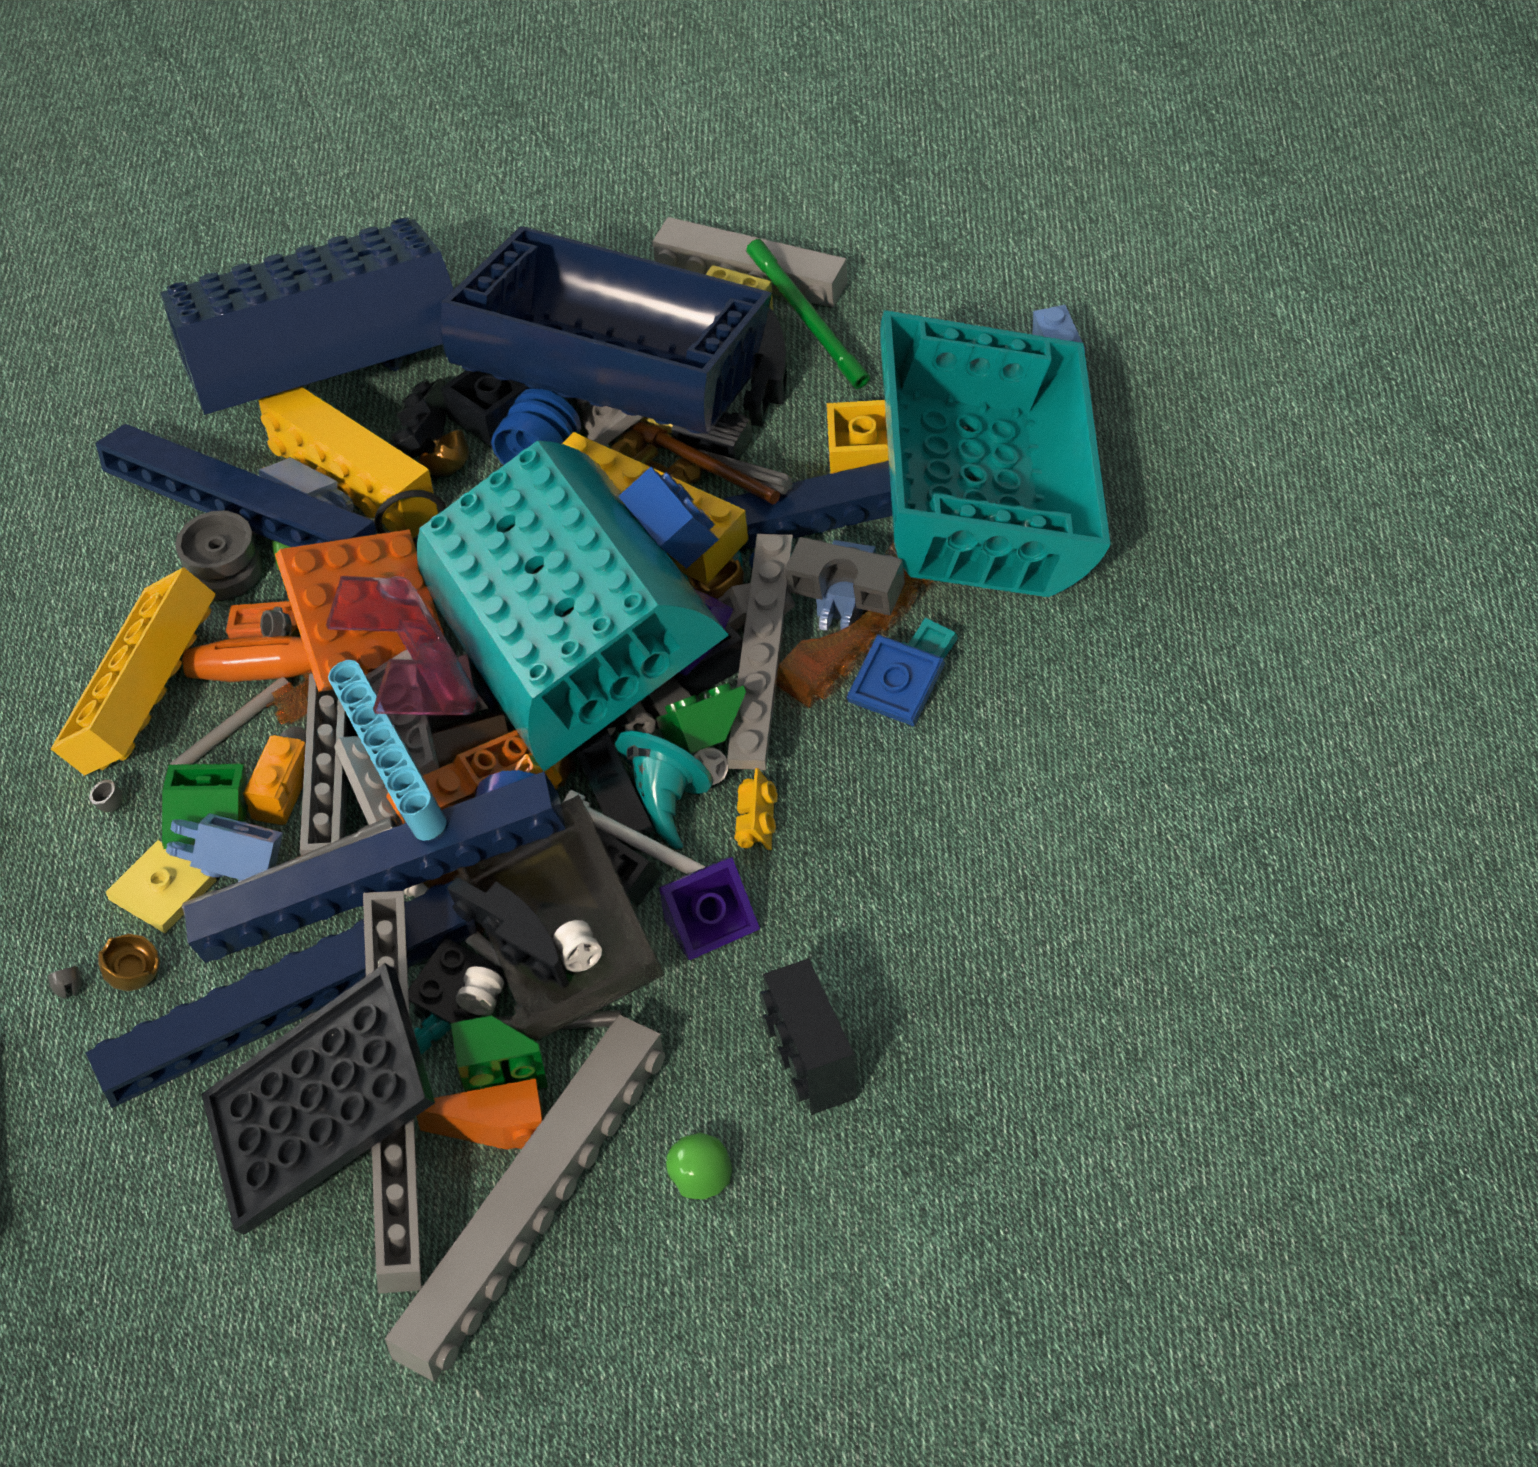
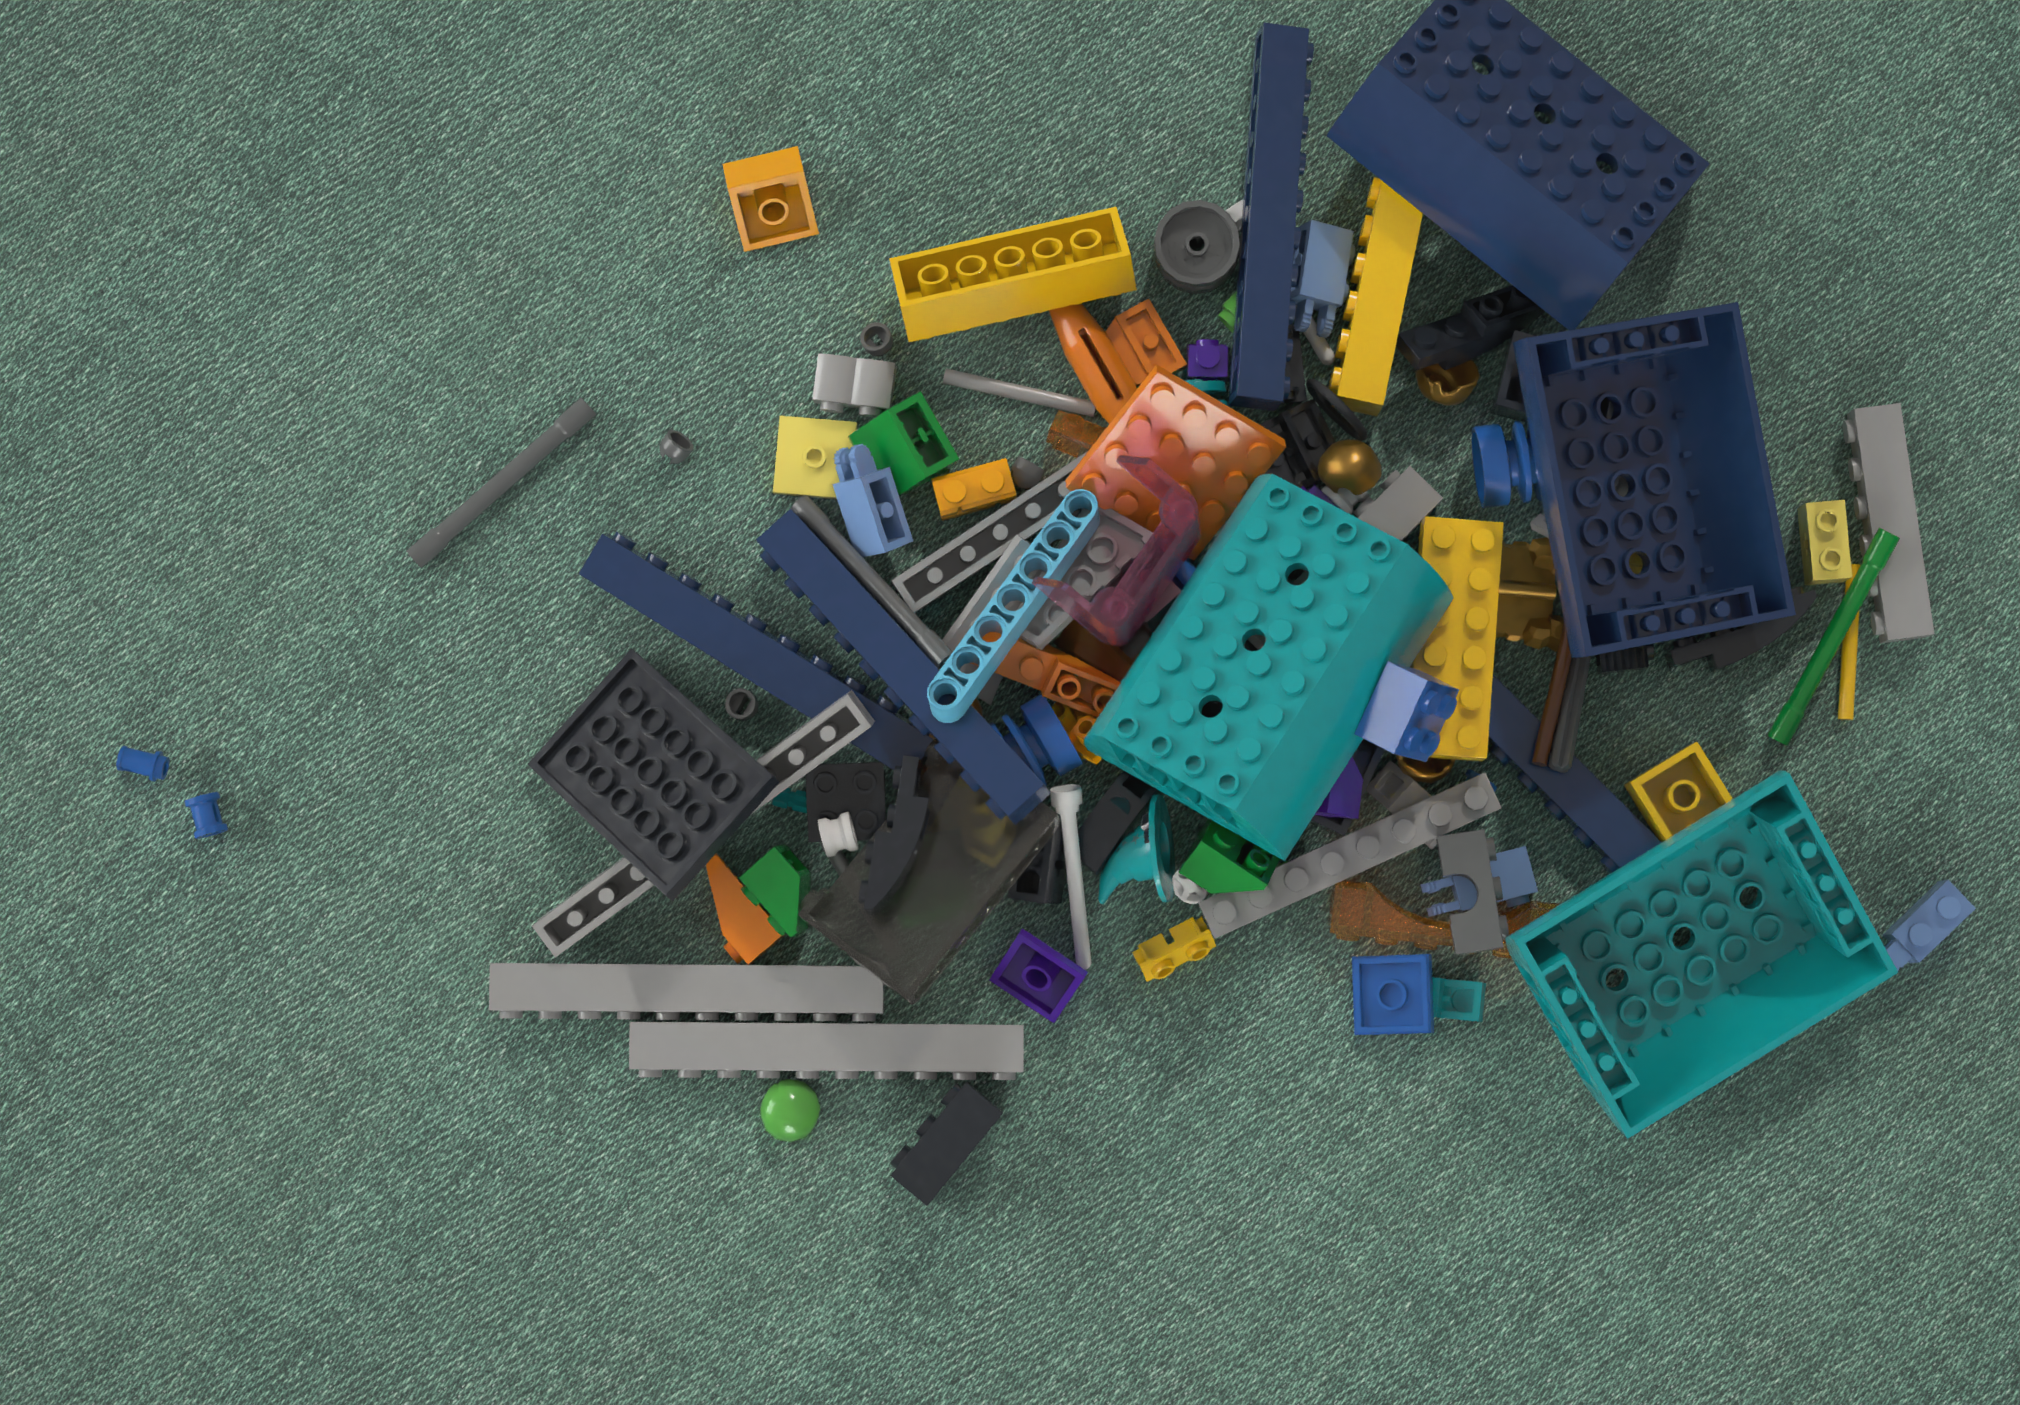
camera: 60 degrees right, 35 degrees up
(124, 826) = (854, 384): none -> light grey brick
(128, 962) = (717, 494): pearl gold hair -> none
(275, 623) = (1135, 369): dark grey plate -> none
(577, 946) = (904, 908): white wheel -> none
(654, 1114) = (826, 1047): none -> light grey brick
(835, 325) = (1848, 663): none -> yellow bar

